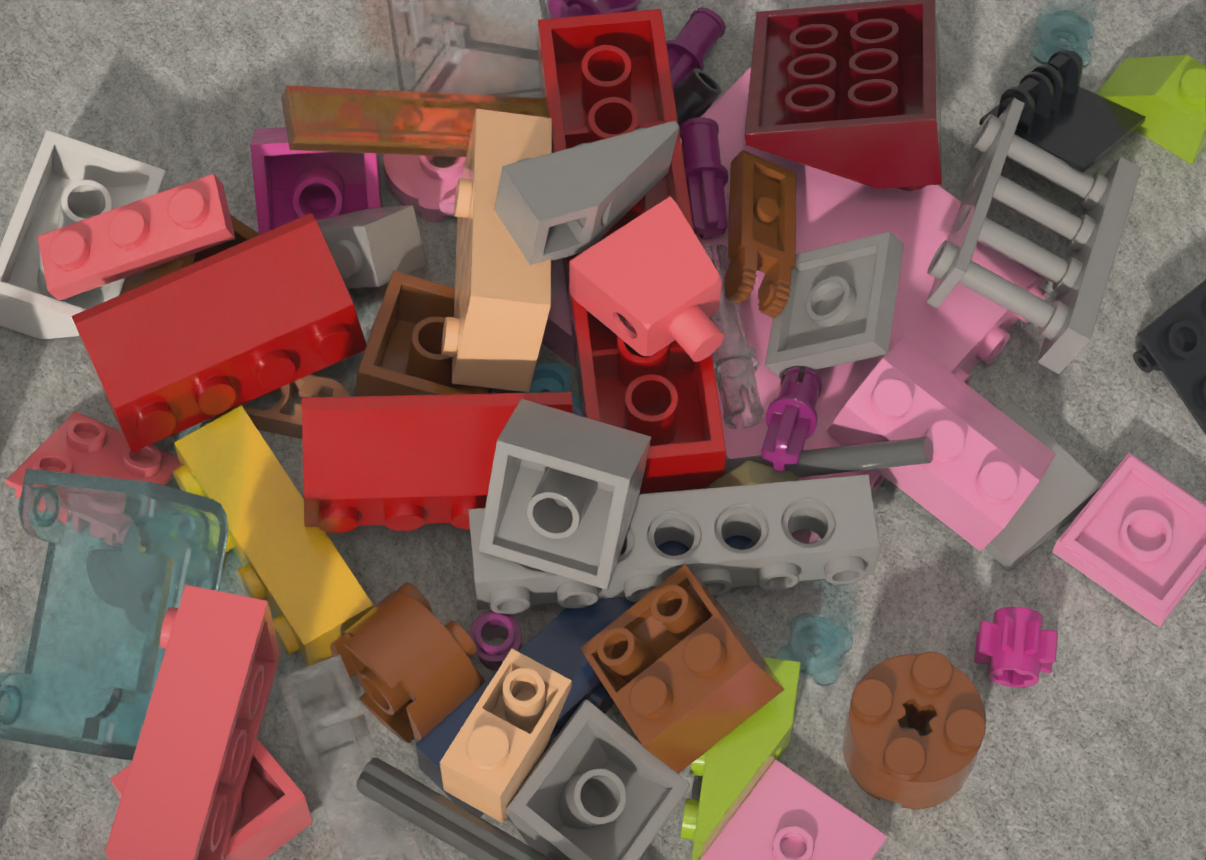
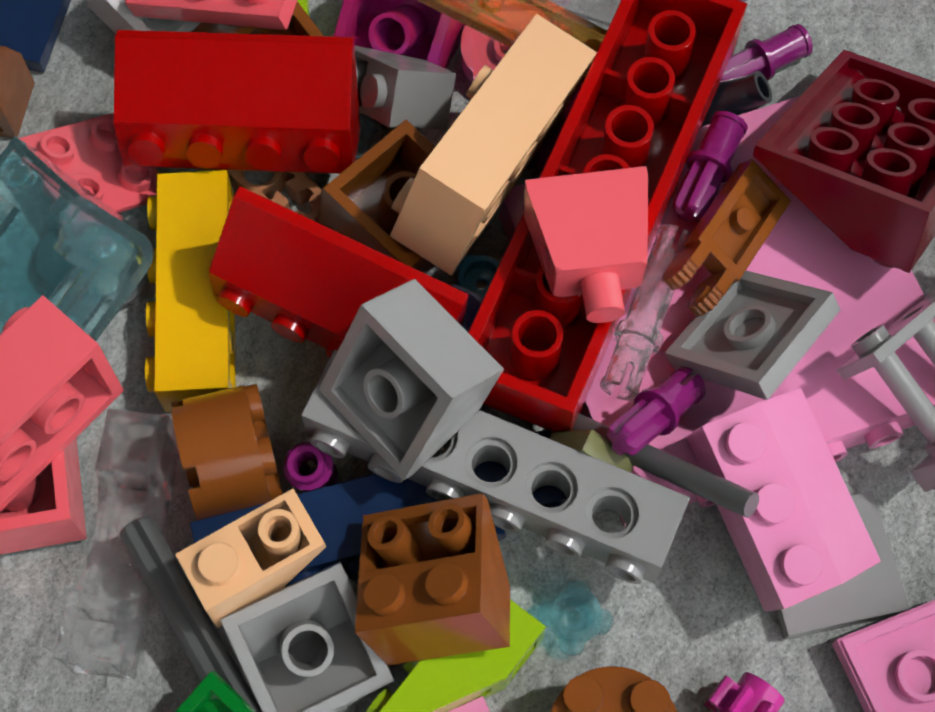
camera: 30 degrees right, 5 degrees up
(576, 195) = (568, 126): light grey slope -> none

